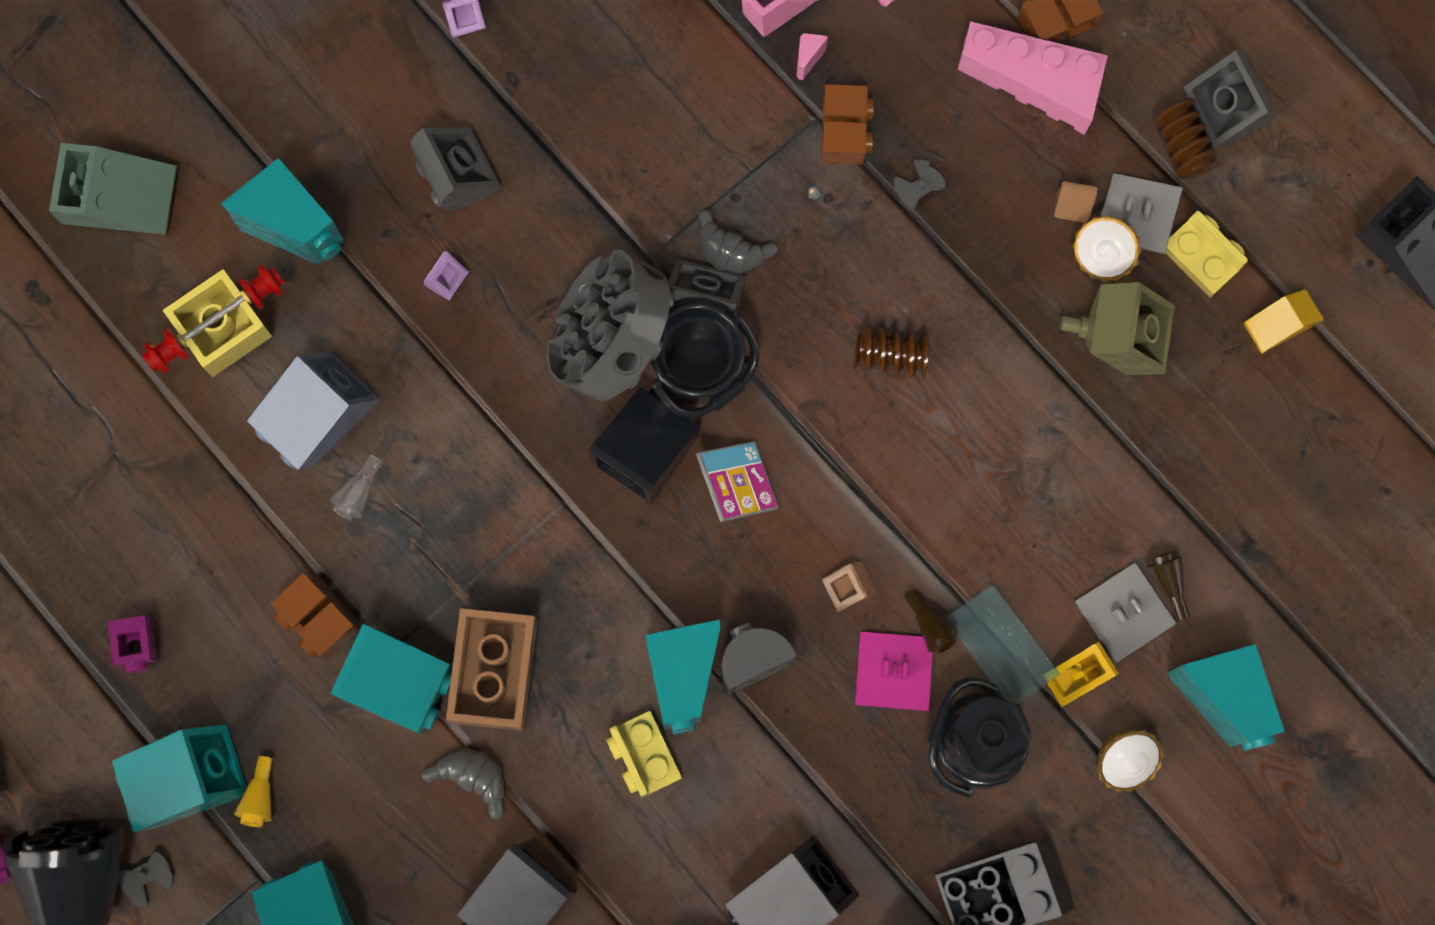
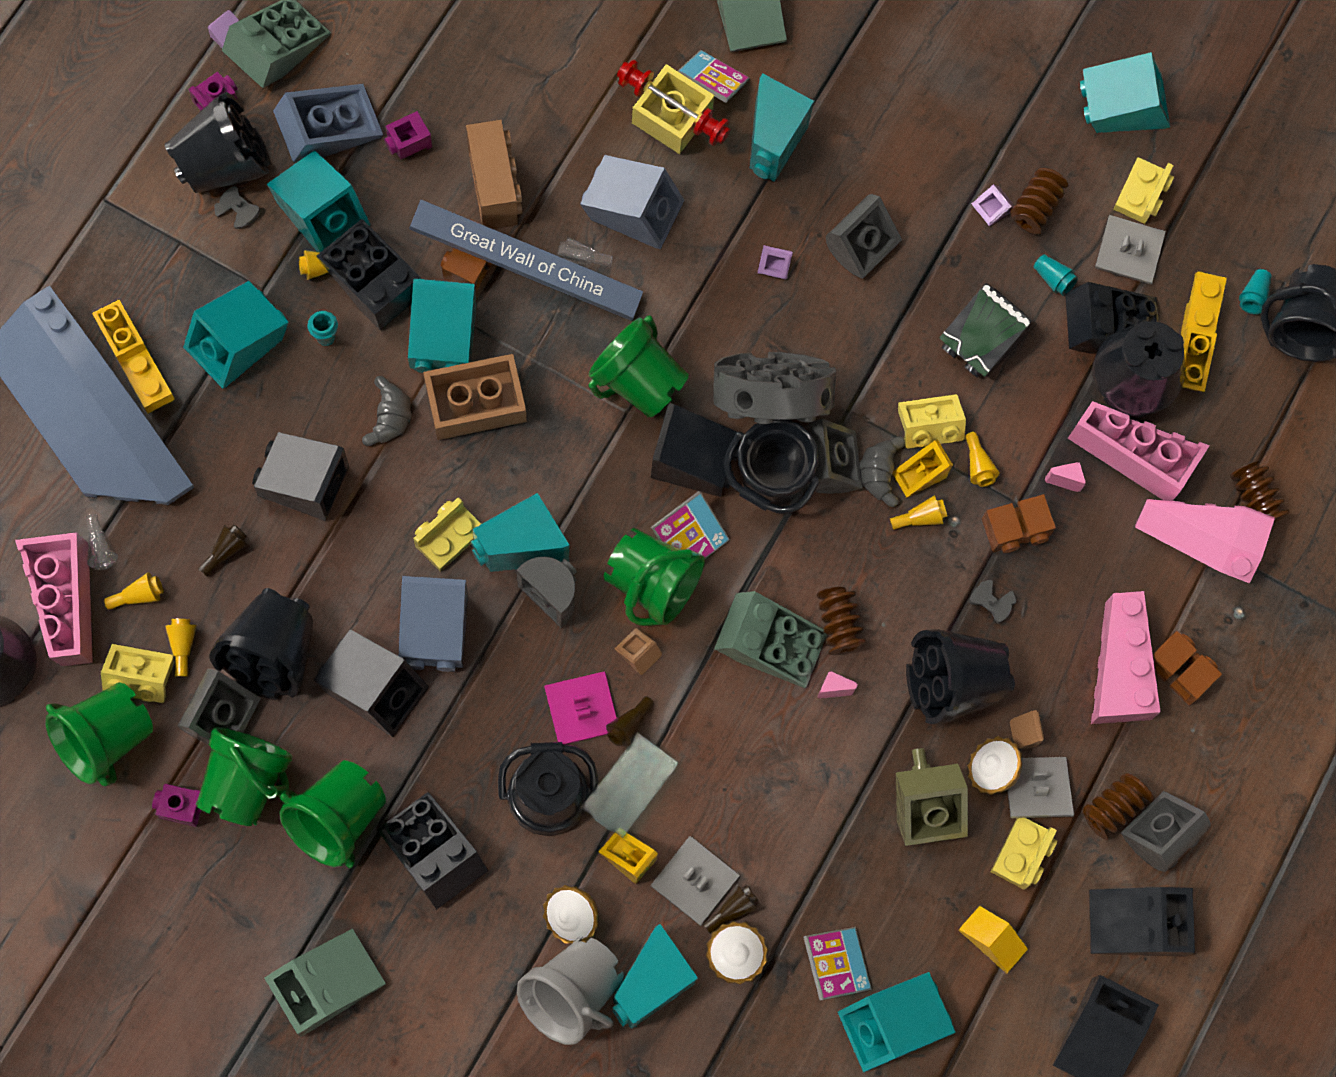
camera: 65 degrees right, 5 degrees down
(75, 734) = (326, 120): none -> sand blue slope
(191, 263) = (714, 75): none -> piece
(223, 557) = (494, 174): none -> medium nougat brick
(292, 743) = (370, 273): none -> black slope
(333, 820) = (323, 327): none -> teal cone
(343, 558) = (525, 260): none -> sand blue tile
(527, 472) = (638, 369): none -> green piece
(614, 74) = (986, 331): none -> slope
(694, 172) = (932, 420): none -> light yellow bracket
(749, 202) = (923, 469): none -> yellow slope
(750, 807) = (433, 622): none -> sand blue slope
(764, 139) = (982, 469): none -> yellow cone
(778, 539) = (654, 576): none -> green piece
(799, 216) = (927, 513): none -> yellow cone
(885, 436) = (770, 638): none -> sand green slope
(961, 386) = (836, 686): none -> bright pink slope
(999, 252) = (956, 674): none -> black cone
(1222, 787) = (570, 991): none -> light grey piece
(1224, 594) = (736, 952): none -> white piece
(1266, 491) = (837, 963): none -> piece
(1317, 160) = (1142, 921): none -> black slope
(1347, 452) = (896, 1021): none -> teal slope

